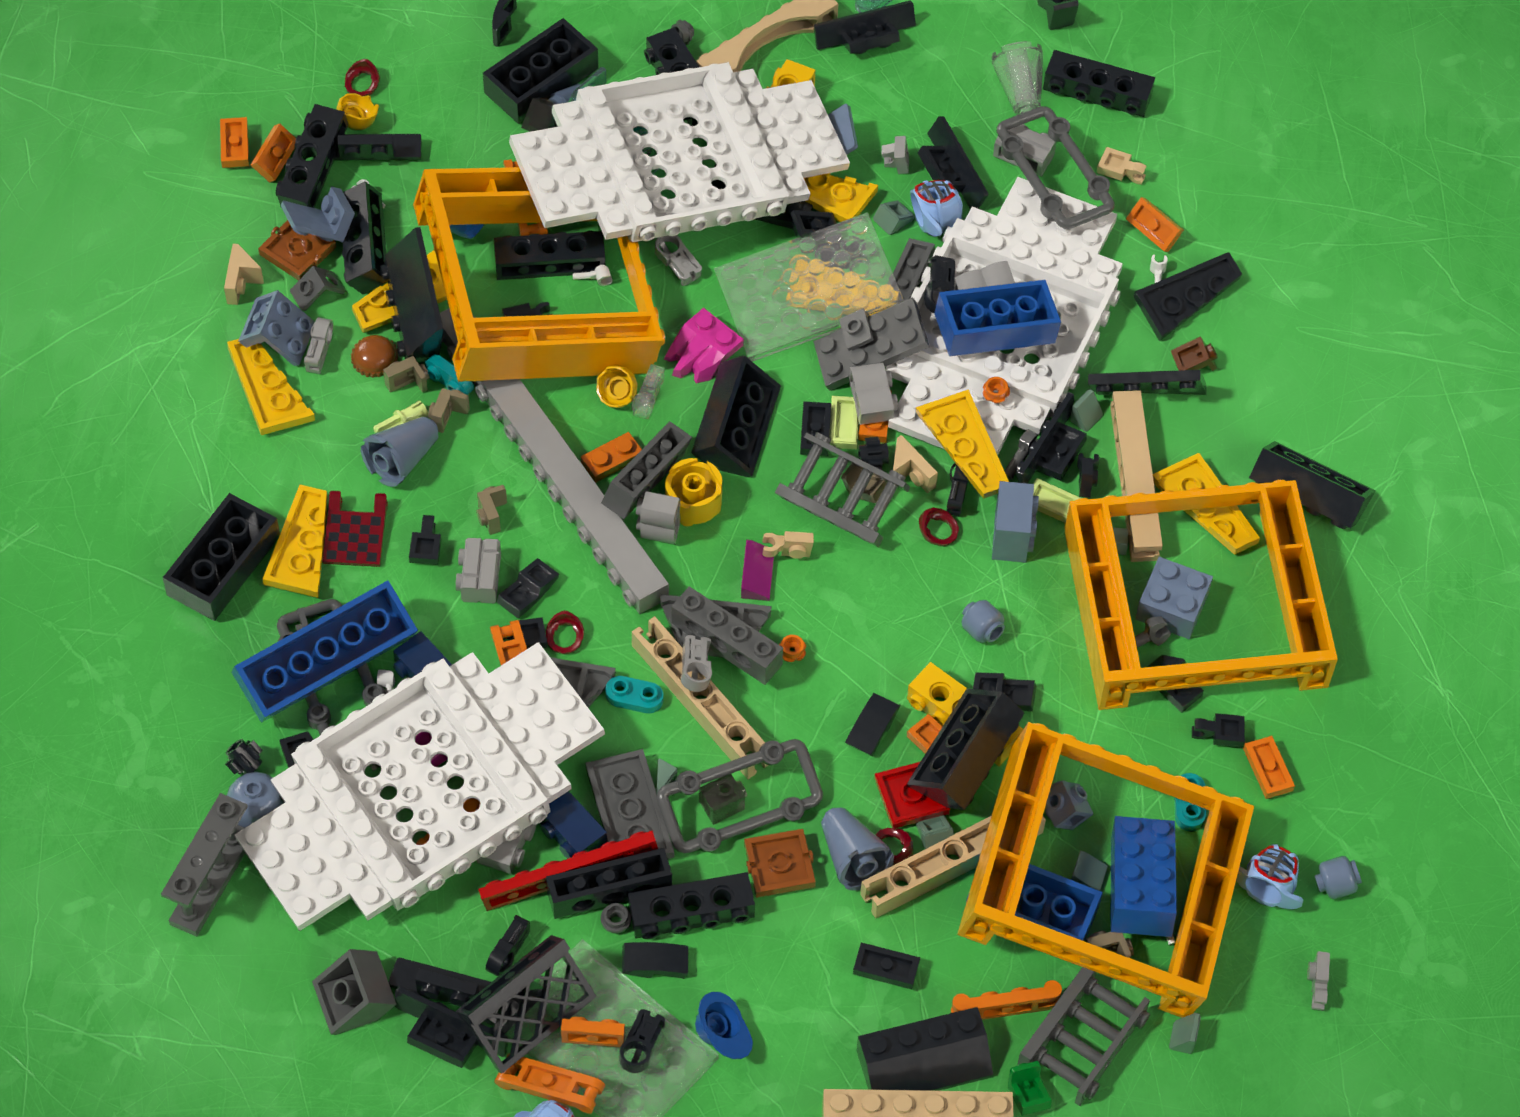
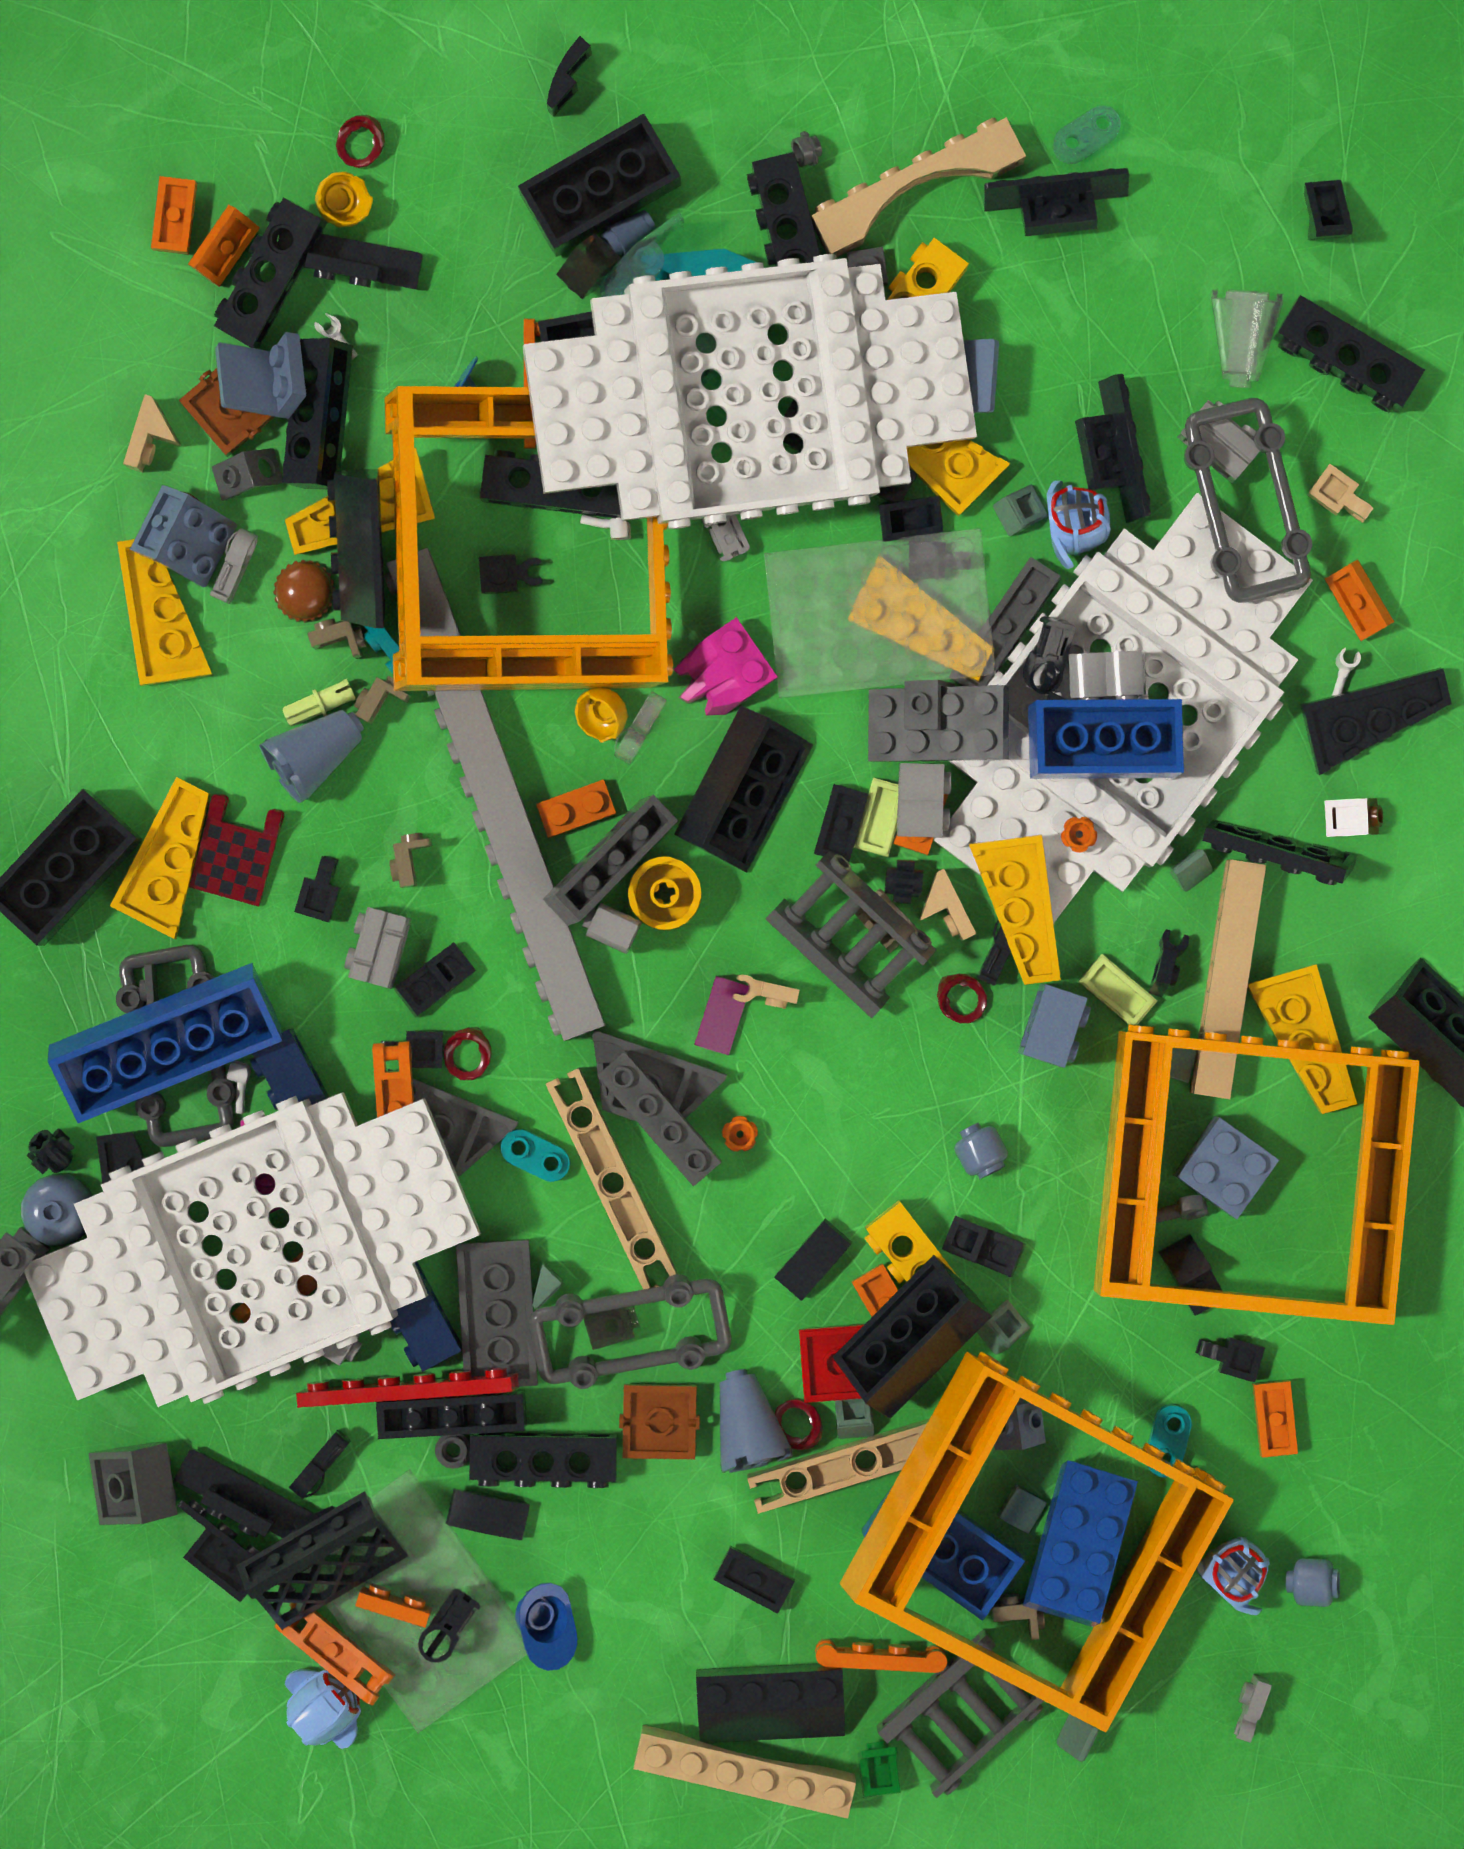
camera: 15 degrees right, 30 degrees up
(696, 660) = (613, 1145): light grey piece -> none
(897, 155) = (1048, 418): light grey tile -> none
(1024, 445) = (1095, 913): dark grey bar -> none
(1055, 447) = (1138, 920): black bracket -> none

